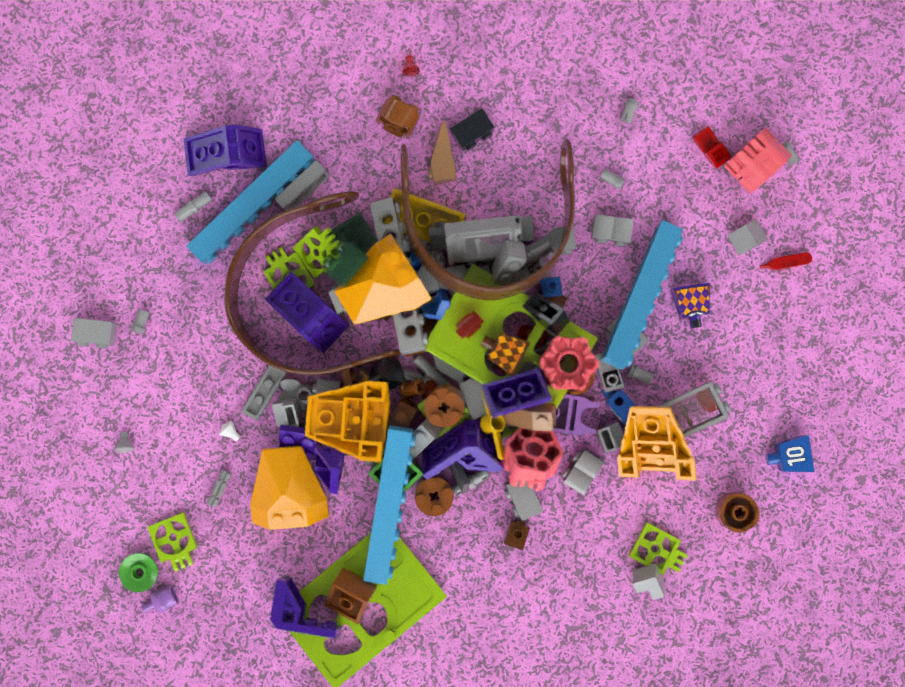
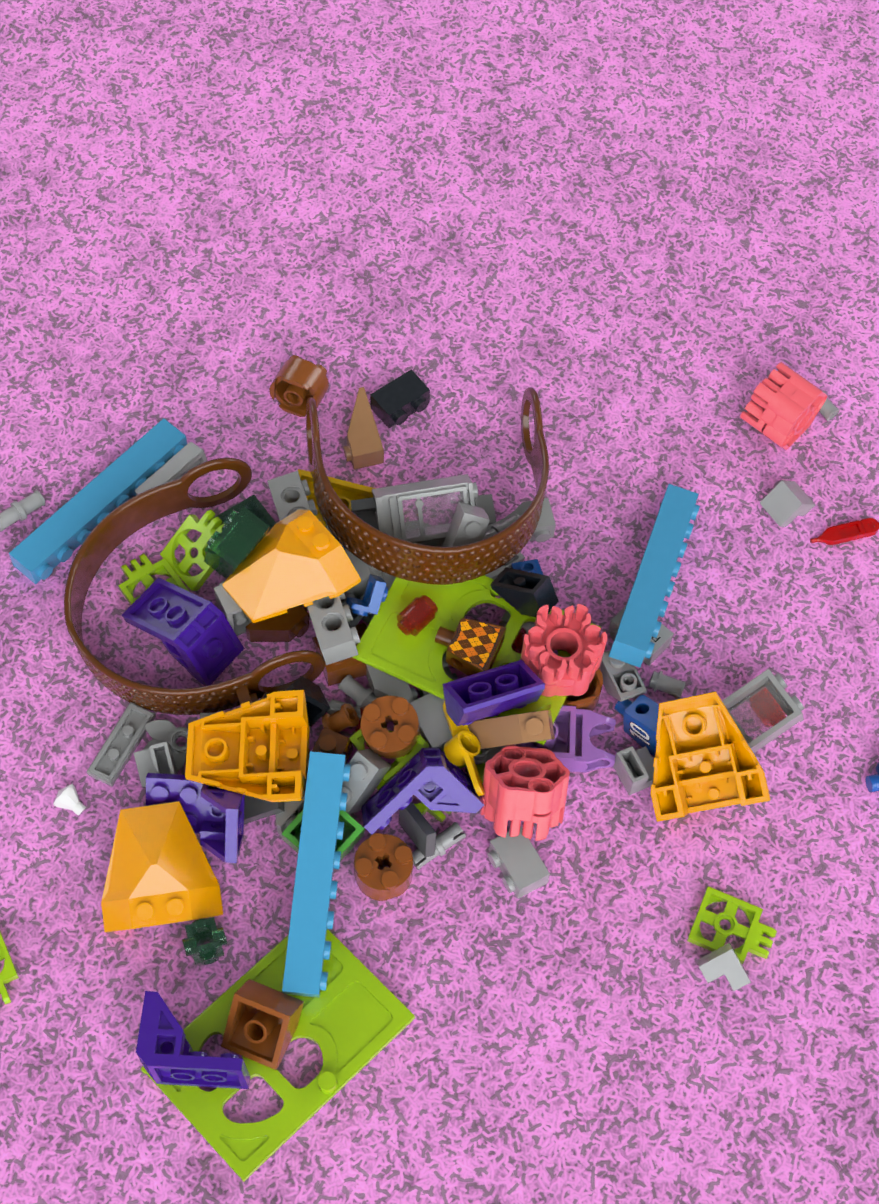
camera: 10 degrees left, 25 degrees down
(218, 488) = (52, 884): light grey axle -> none
(225, 148) = (65, 429): dark purple bracket -> none
(308, 538) = (204, 931): none -> clear green brick
(410, 68) = (312, 336): clear red rock -> none
(517, 534) = (513, 916): reddish brown brick -> none
(582, 472) = (601, 820): light grey brick -> none
(612, 178) = (594, 446): light grey pin -> none
(612, 229) = (602, 504): light grey brick -> none
(629, 110) = (607, 363): light grey pin -> none
(692, 302) = (725, 586): torso -> none
(711, 147) = (719, 405): red slope -> none
(740, 522) = (853, 859): dark orange brick -> none

